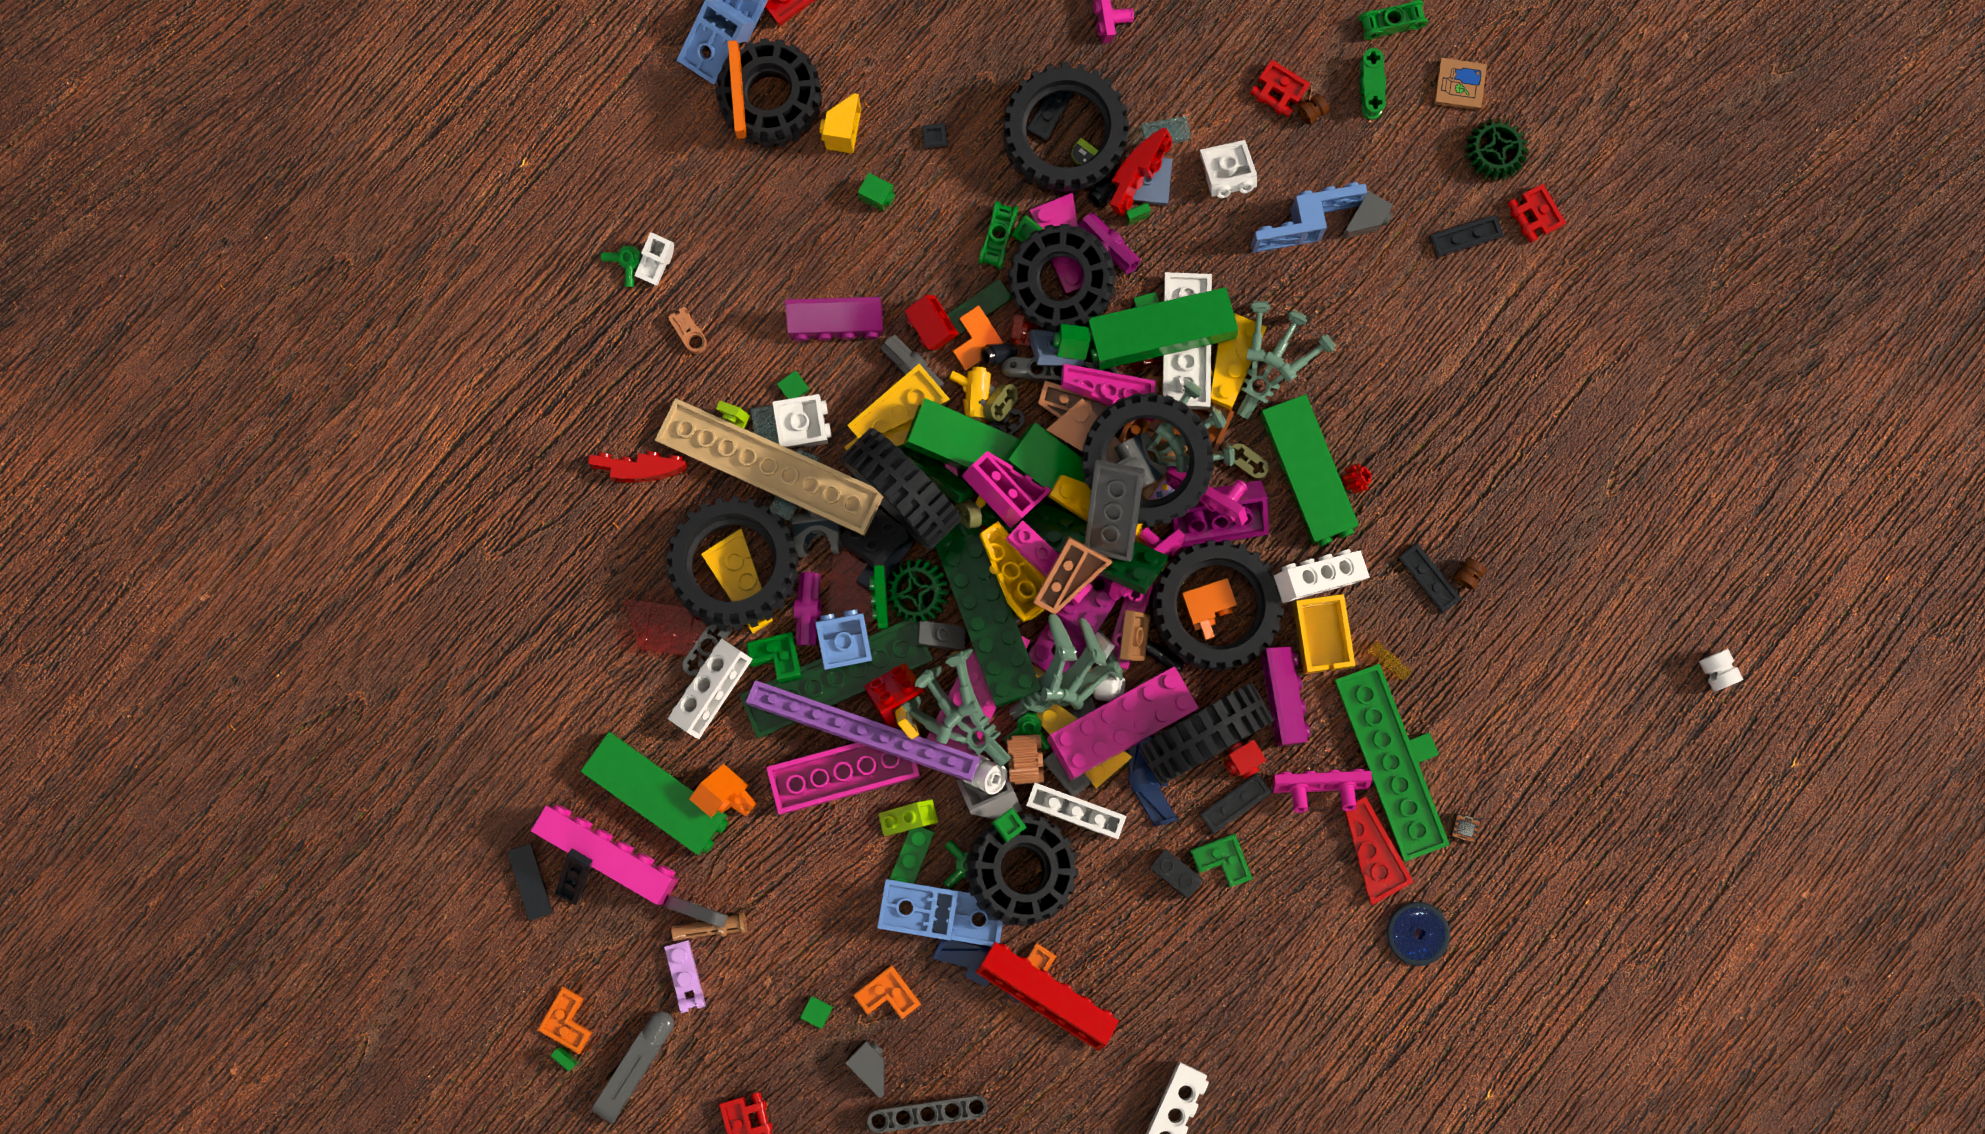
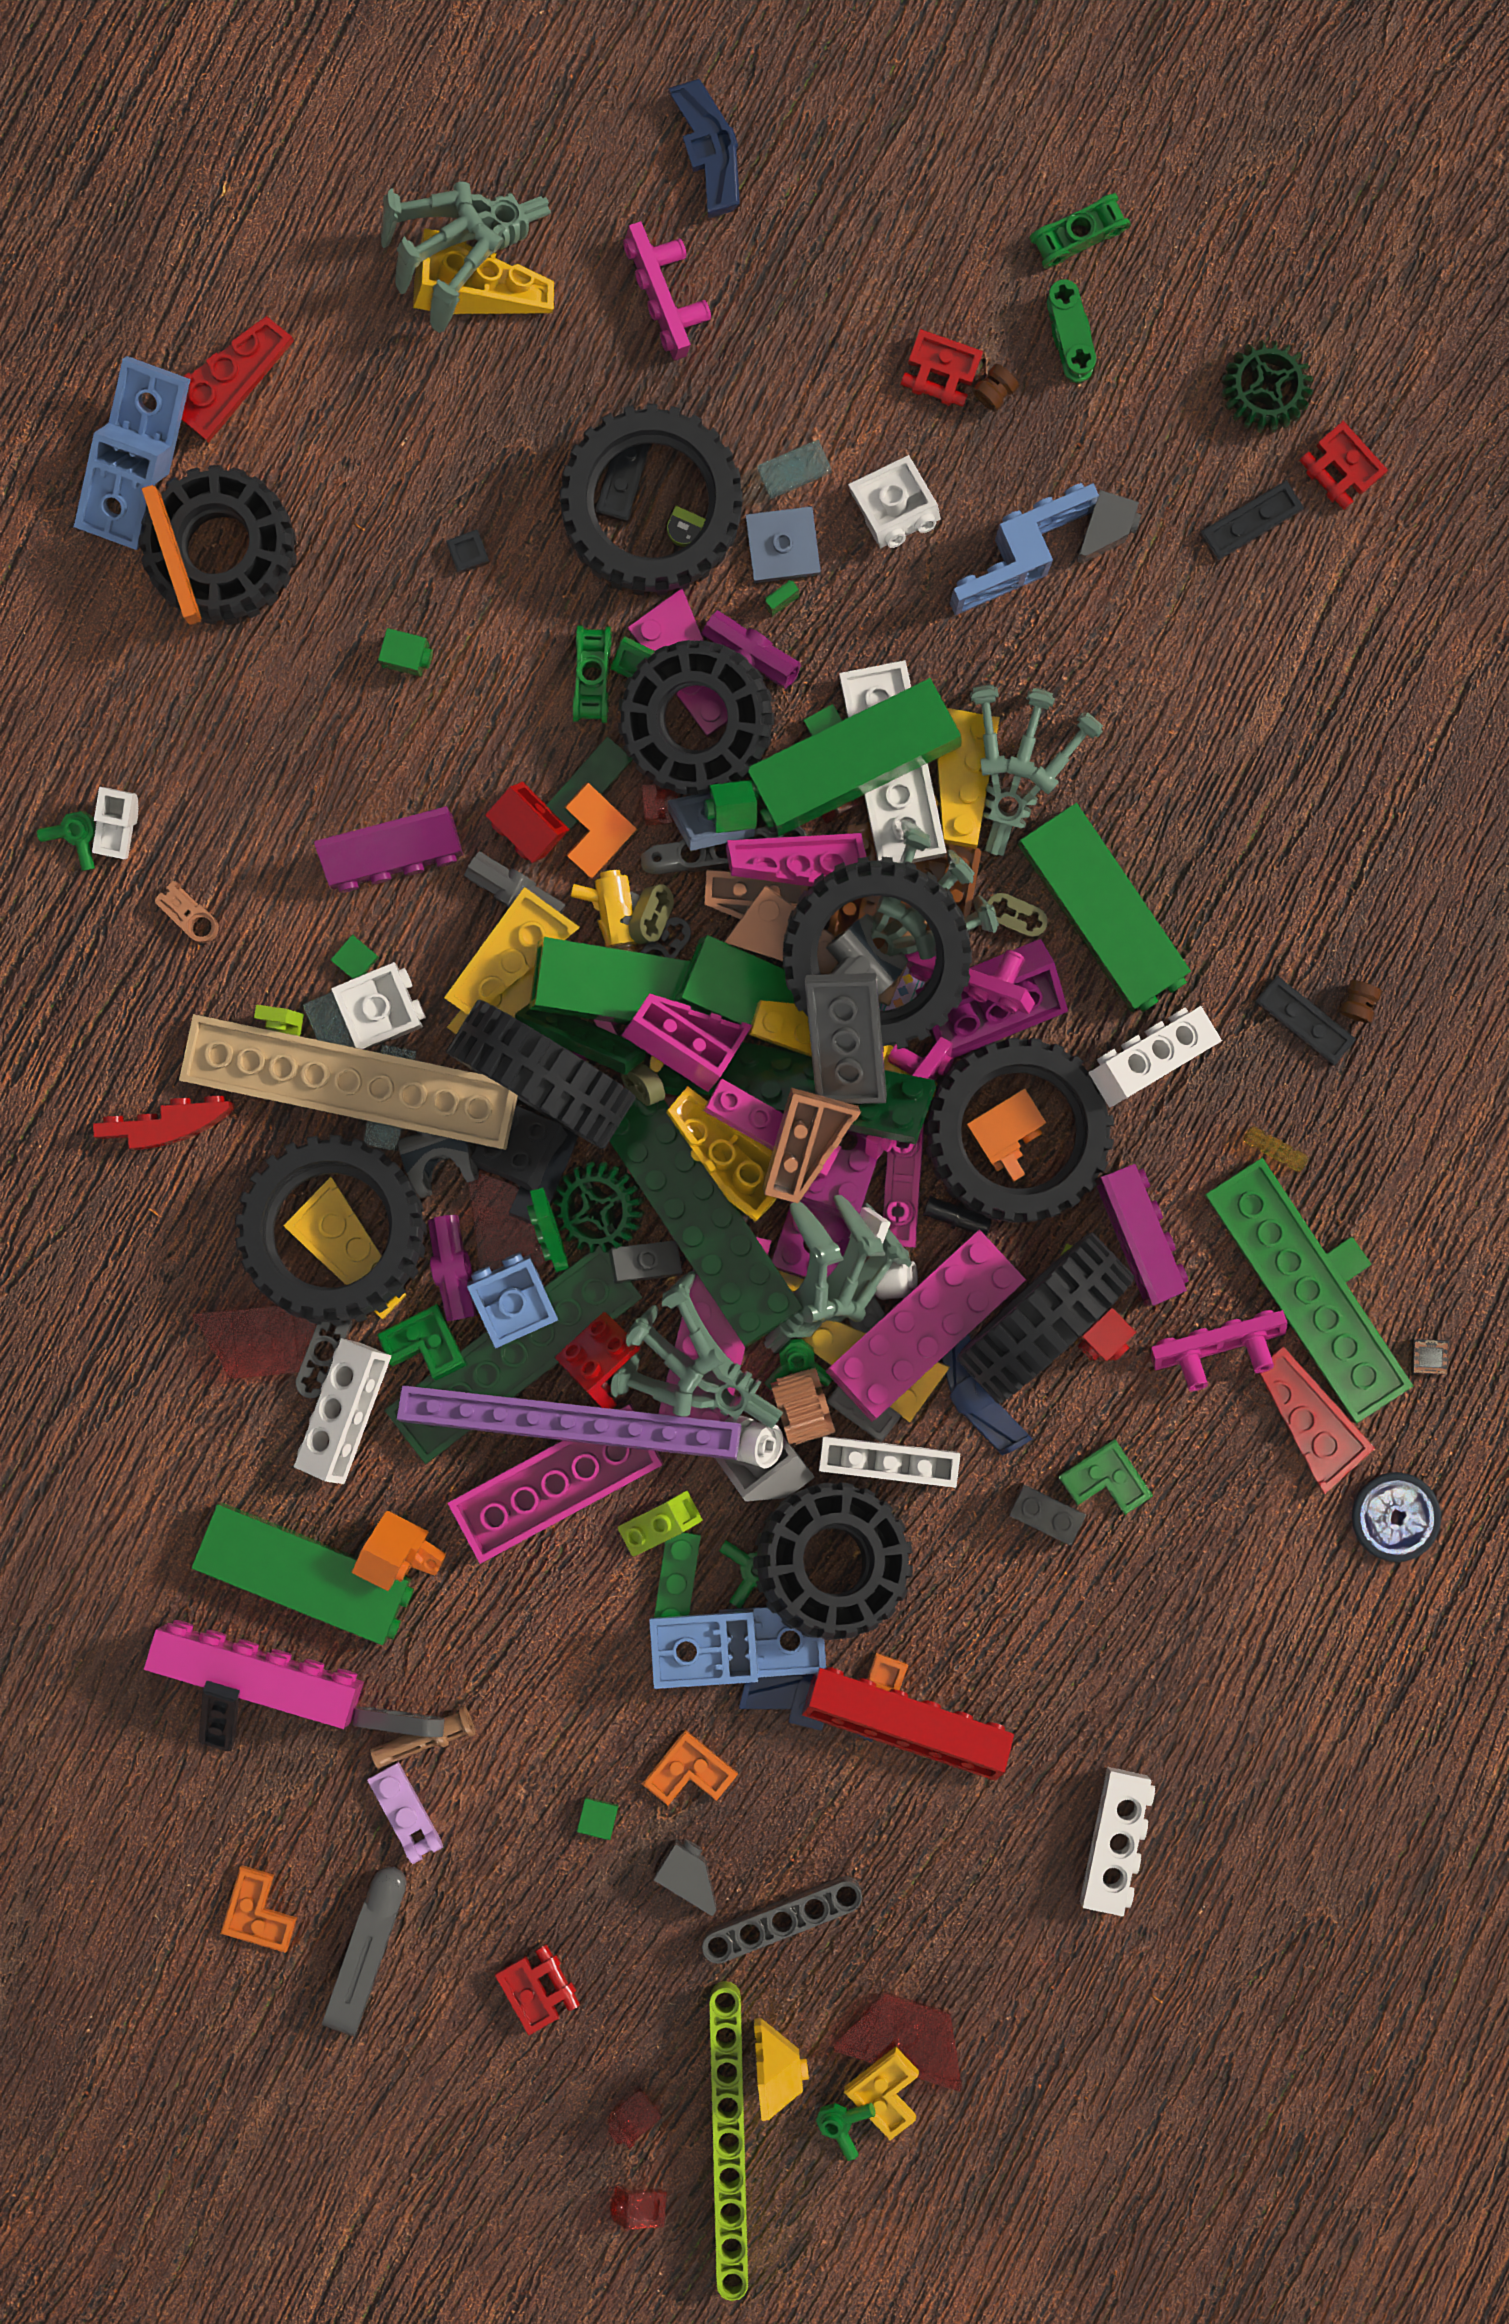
camera: 10 degrees left, 5 degrees up
(530, 882) = (160, 1734): black tile -> none
(564, 1059) = (268, 1964): green tile -> none
(841, 125) = (332, 568): yellow slope -> none
(906, 722) = (627, 1399): yellow tile -> none
(997, 353) = (630, 845): black cone -> none
(1008, 825) = (801, 1506): green tile -> none
(1102, 192) = (726, 576): black cone -> none
(1135, 635) = (915, 1201): medium nougat tile -> none
(1141, 163) = (770, 523): red slope -> none
(1235, 803) = (1106, 1397): black tile -> none
(1323, 634) = (1176, 1135): yellow piece -> none
(1356, 478) = (1173, 904): red gear -> none
(1460, 84) = (1195, 301): medium nougat tile -> none

